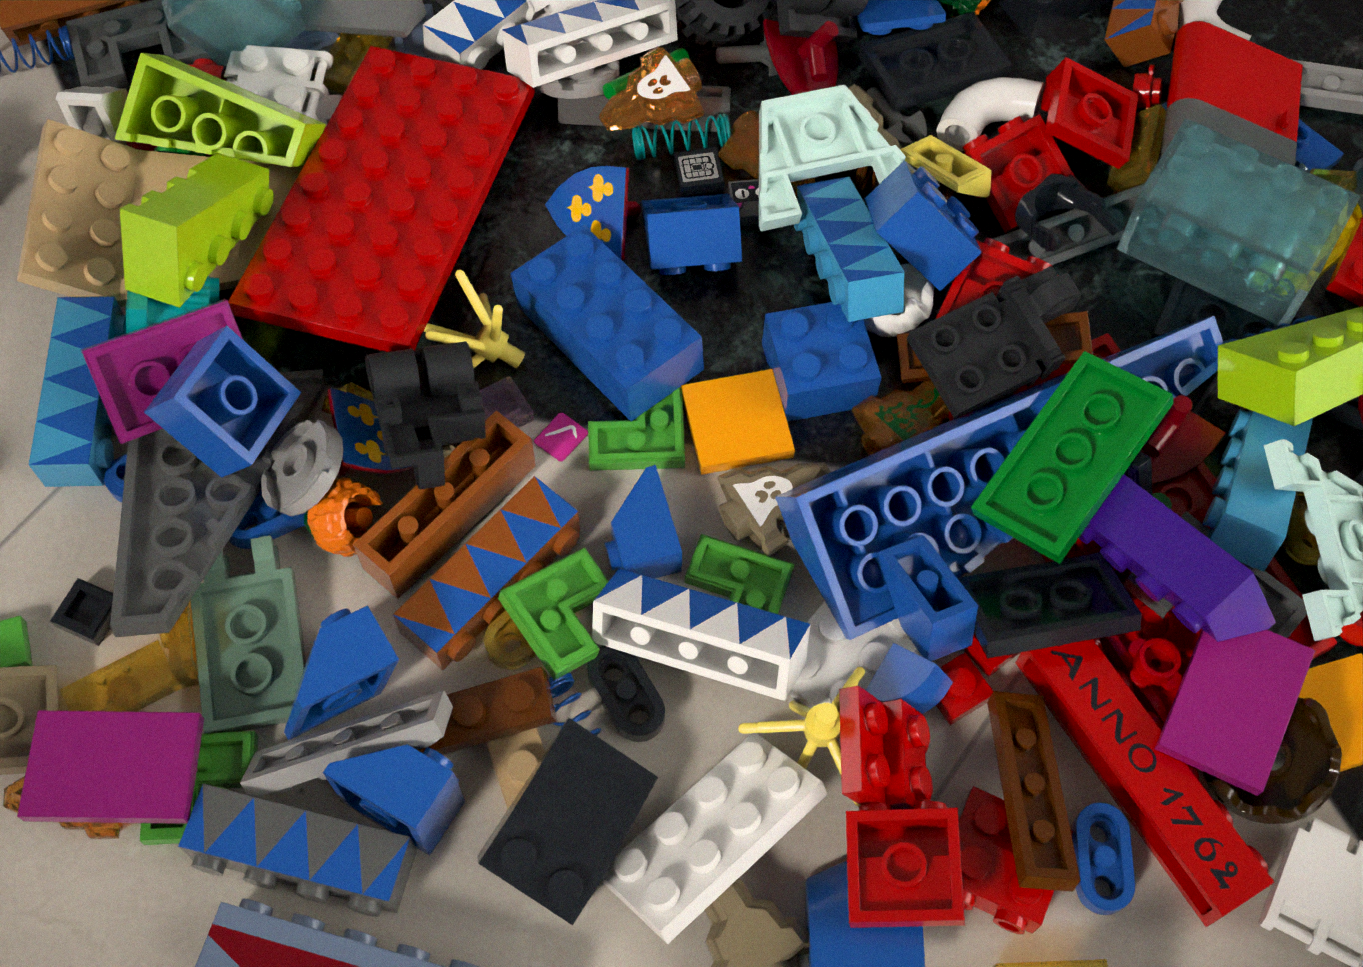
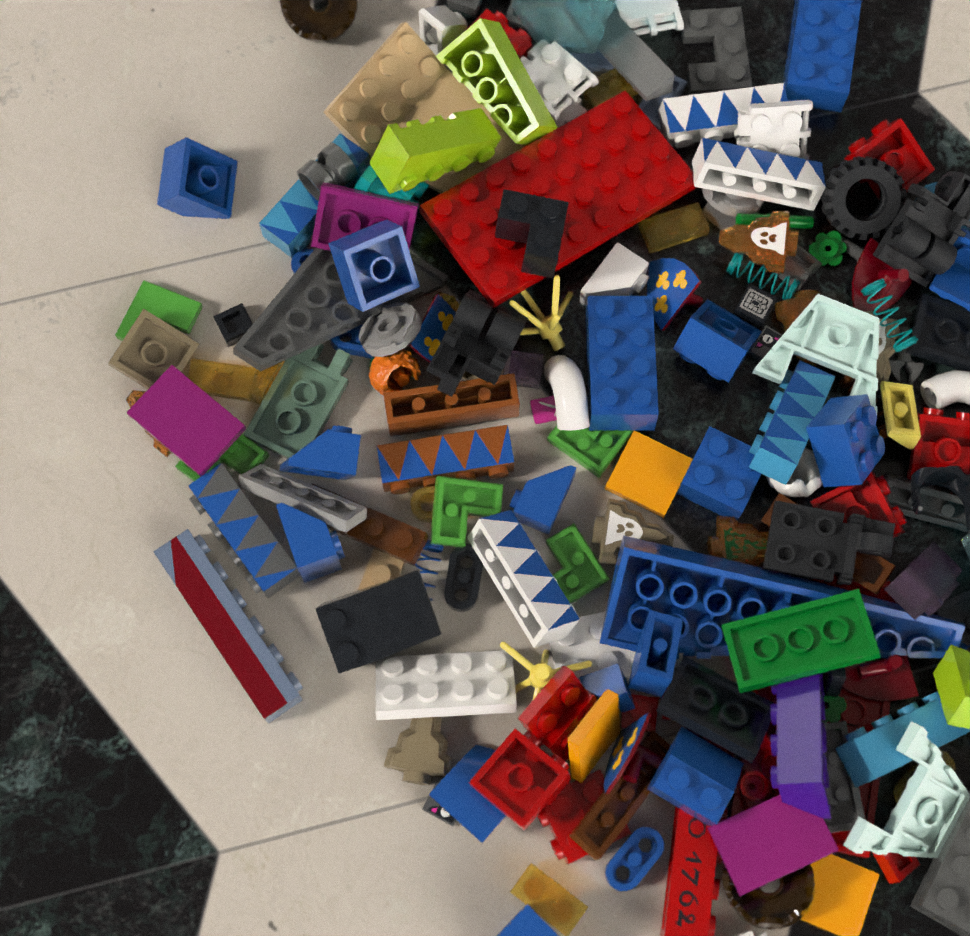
camera: 40 degrees right, 10 degrees up
(73, 327) = (331, 167): none -> dark grey wheel
(390, 224) = (536, 223): none -> black brick
(522, 232) = (617, 275): none -> white slope
(541, 153) = (674, 227): none -> clear yellow plate
(577, 390) = (568, 392): none -> white cylinder
(717, 76) = (832, 257): none -> green plant
(815, 55) = (872, 289): none -> teal piece
(940, 744) = (594, 735): none -> light orange tile
(994, 736) = (630, 754): none -> shield
(1098, 700) = (696, 777): none -> blue slope
(1132, 306) = (925, 582): none -> clear purple brick

